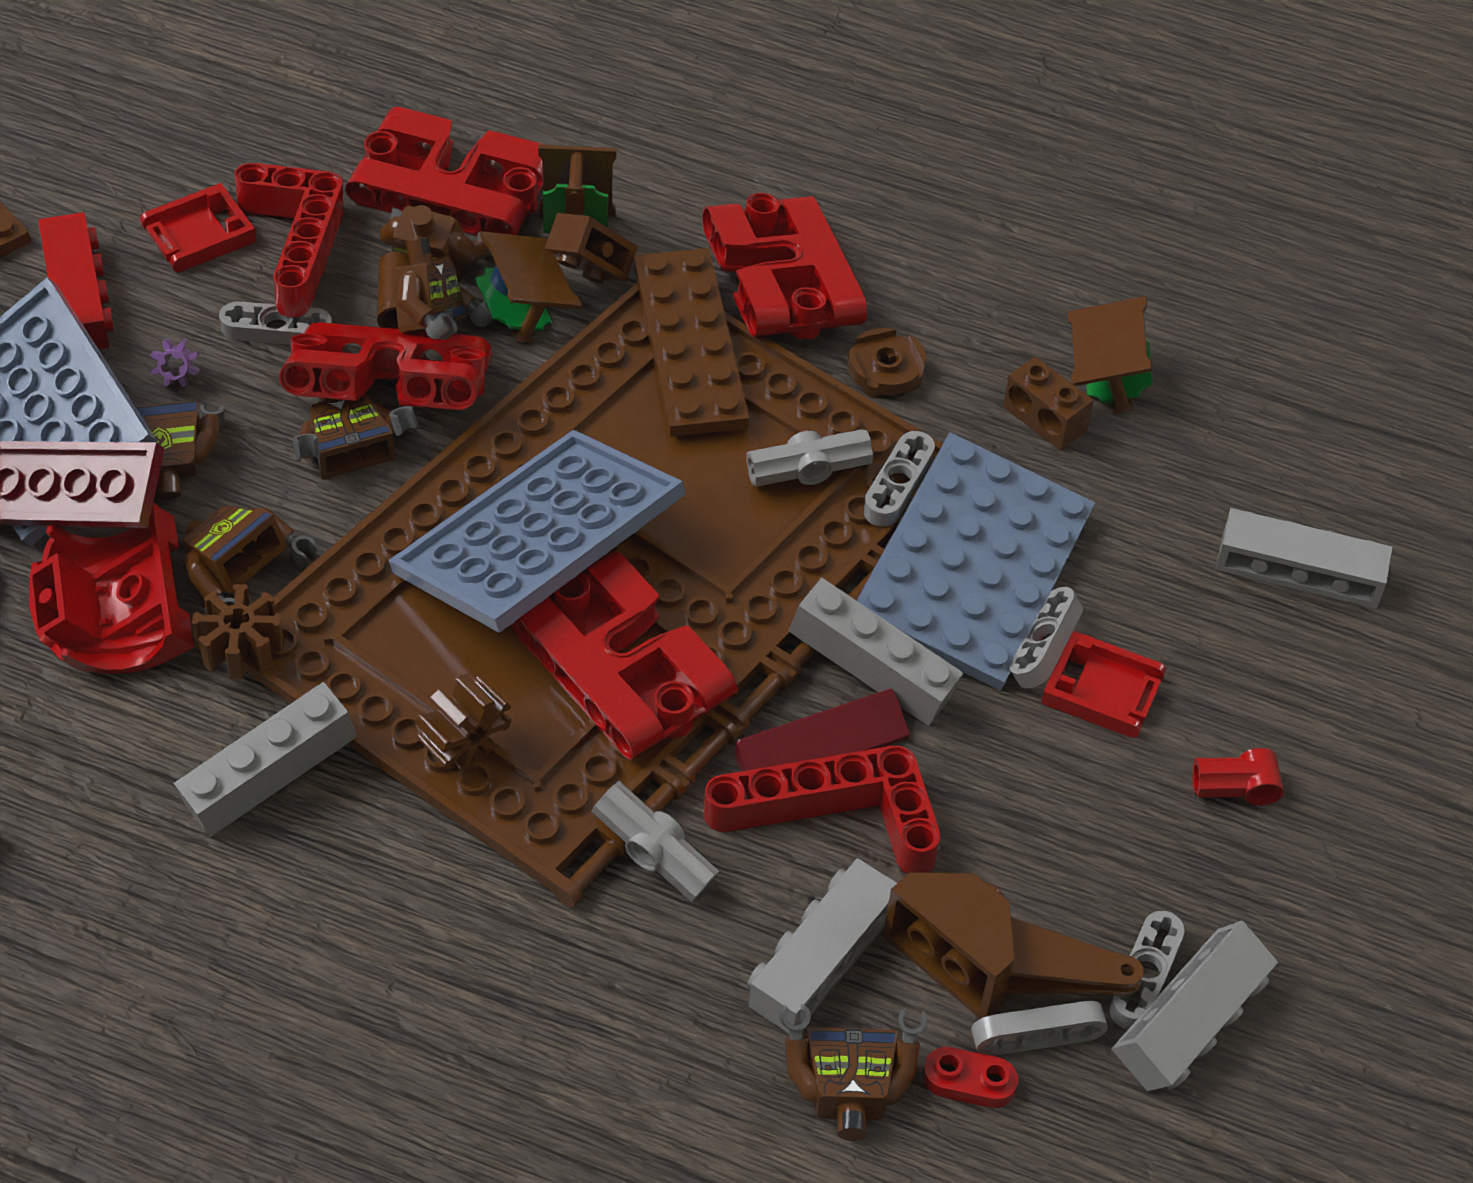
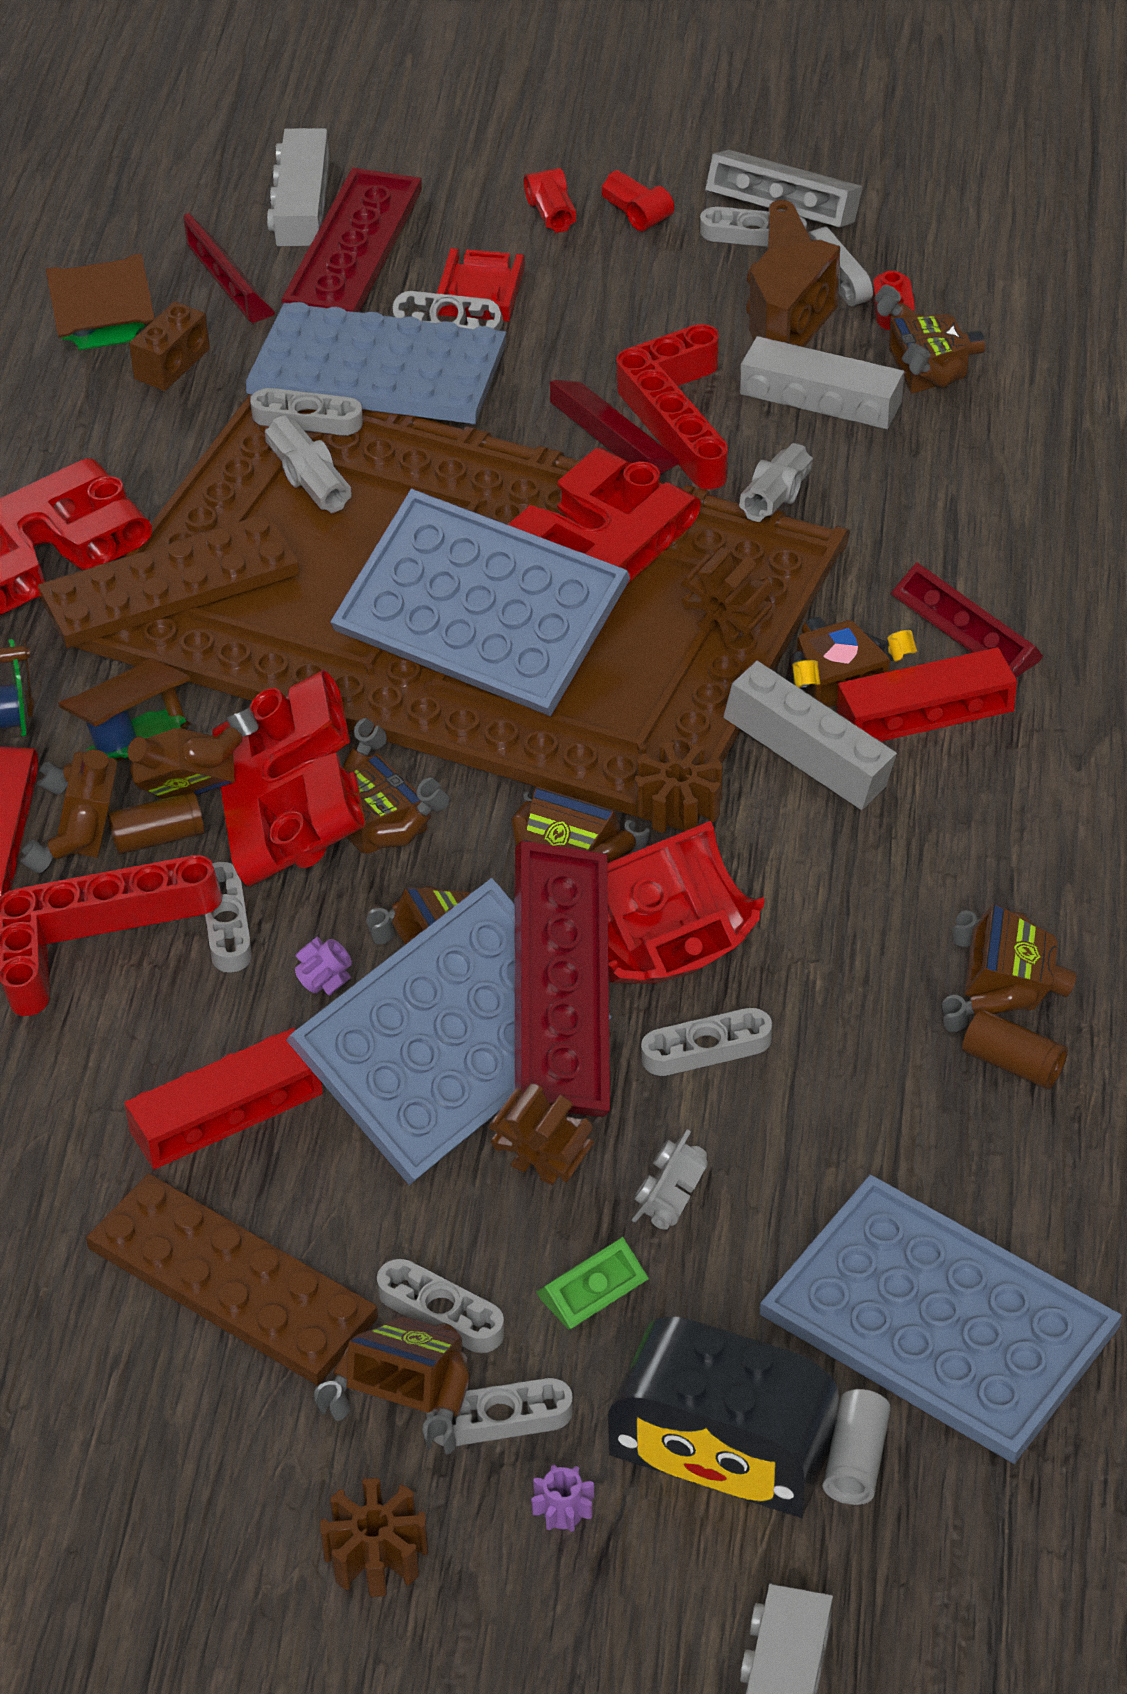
camera: 100 degrees left, 5 degrees down
(191, 234) = (97, 1037): red container -> none
(293, 892) = (929, 695): none -> red brick
(371, 823) = (841, 654): none -> torso
(401, 978) = (963, 619): none -> dark red slope
(590, 247) = (71, 661): reddish brown brick -> none
(874, 651) = (518, 391): light grey brick -> none
(885, 379) = (159, 460): reddish brown plate -> none
(1175, 475) = (226, 271): none -> dark red slope
(1196, 585) = (354, 240): none -> dark red plate
(1208, 864) = (642, 205): none -> red piece

